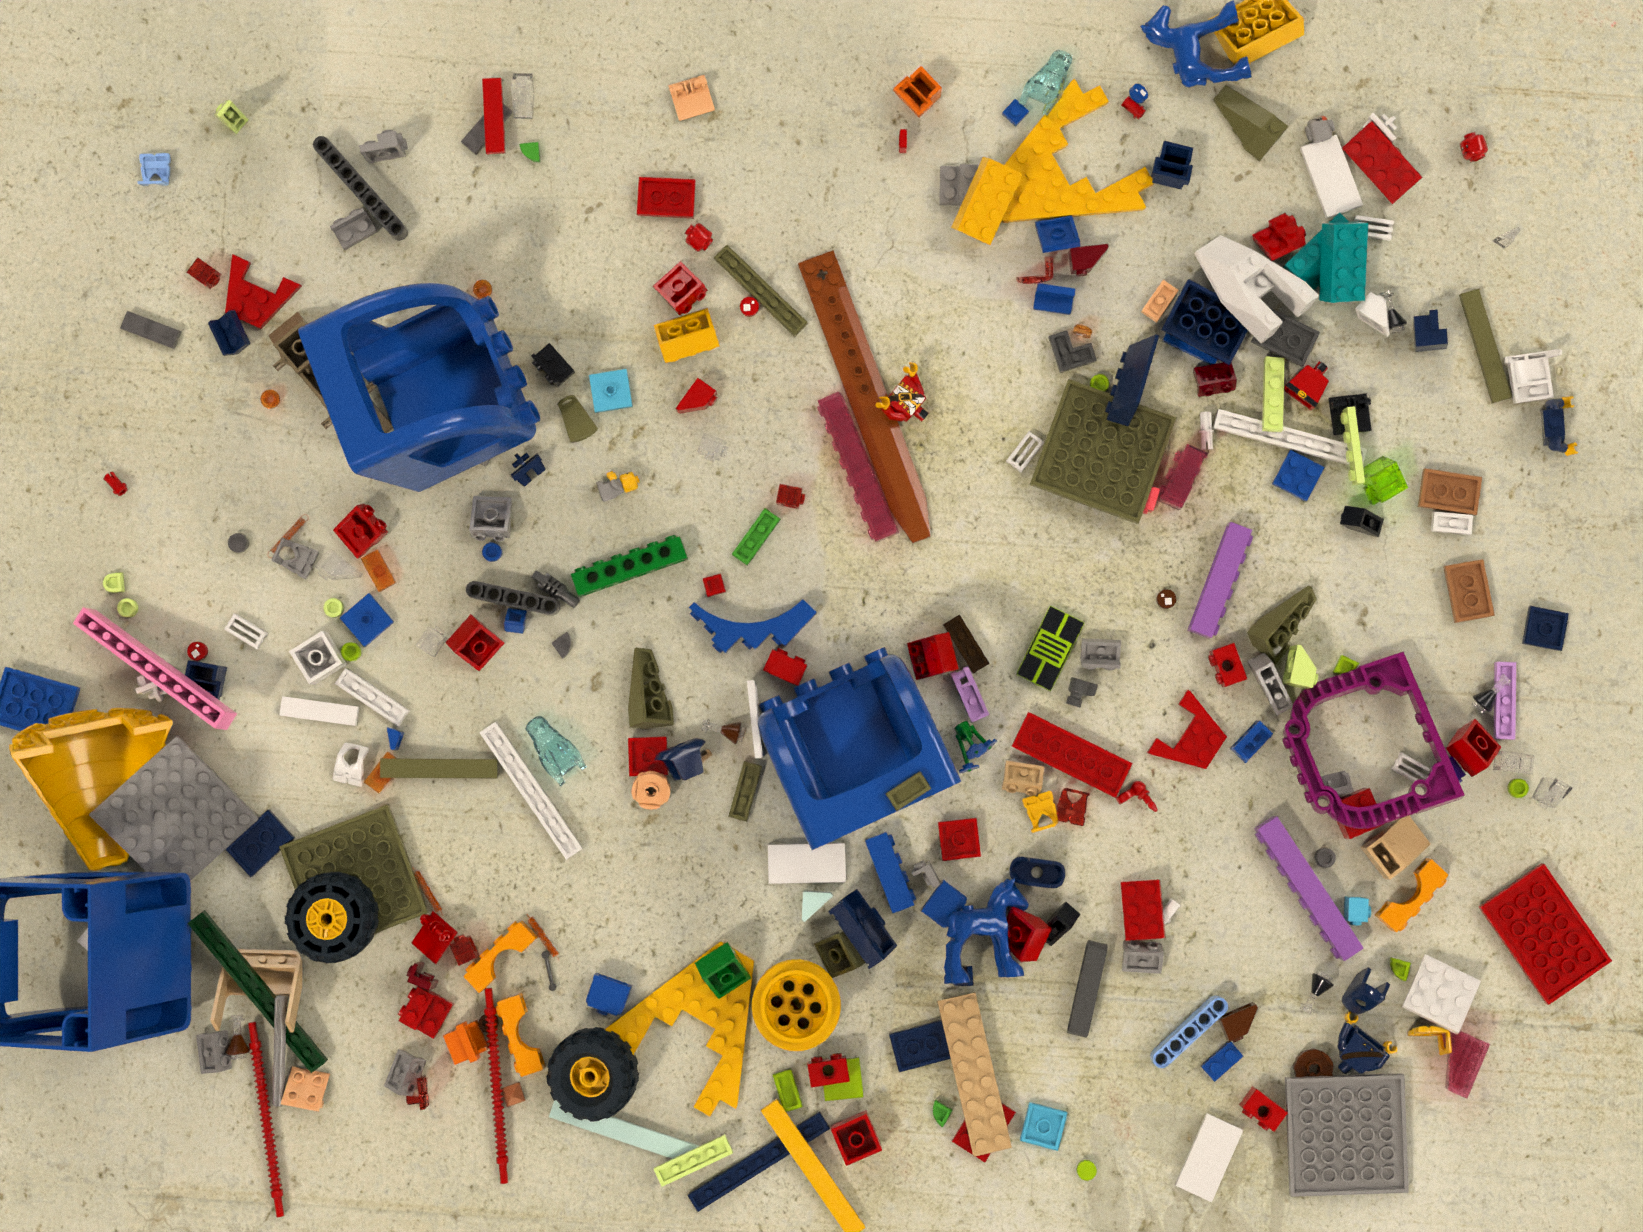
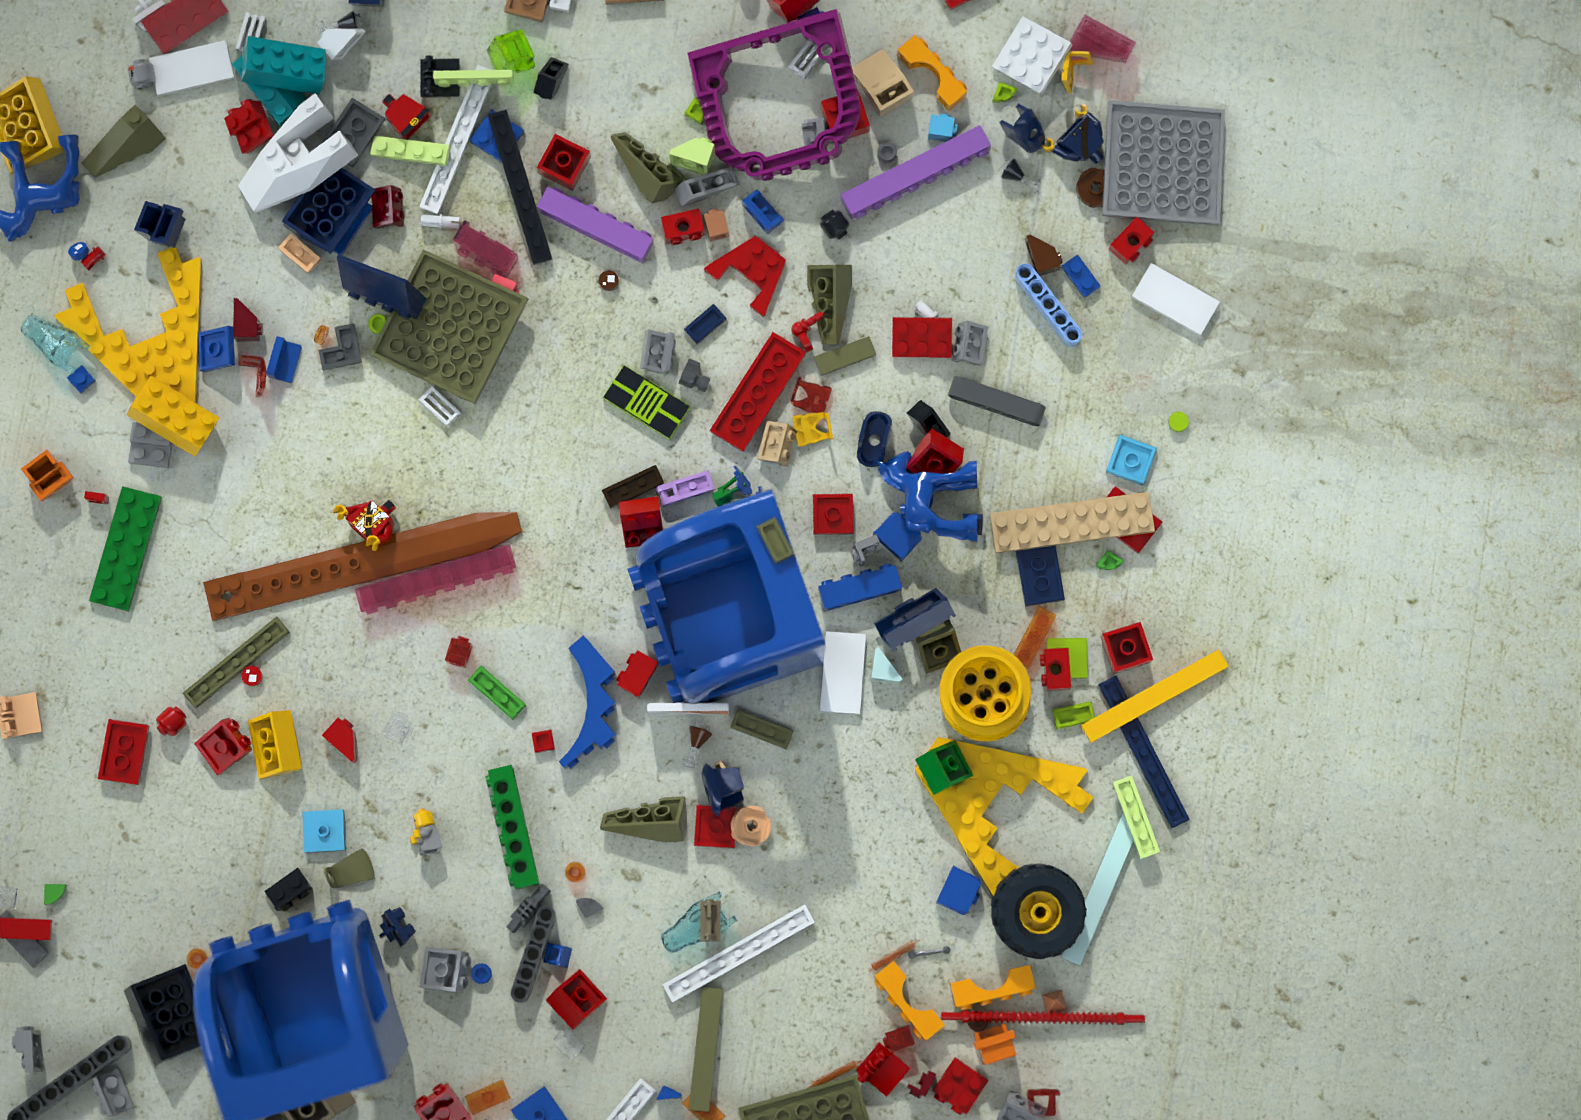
camera: 95 degrees left, 5 degrees down
(429, 261) = (165, 1013): none -> black slope
(556, 761) = (710, 921): none -> dark tan hinge
(587, 628) = (570, 867): none -> clear orange plate
(857, 174) = (125, 549): none -> green plate
(859, 1045) = (1034, 636): none -> clear orange plate
(1116, 836) = (845, 356): none -> olive tile
(1133, 696) = (705, 324): none -> dark blue tile
(1176, 816) = (831, 294): none -> olive wedge
(1233, 697) = (716, 225): none -> nougat brick
(1246, 813) = (834, 224): none -> black head
(1249, 503) = (519, 187): none -> black plate
(1278, 543) = (563, 162): none -> red brick

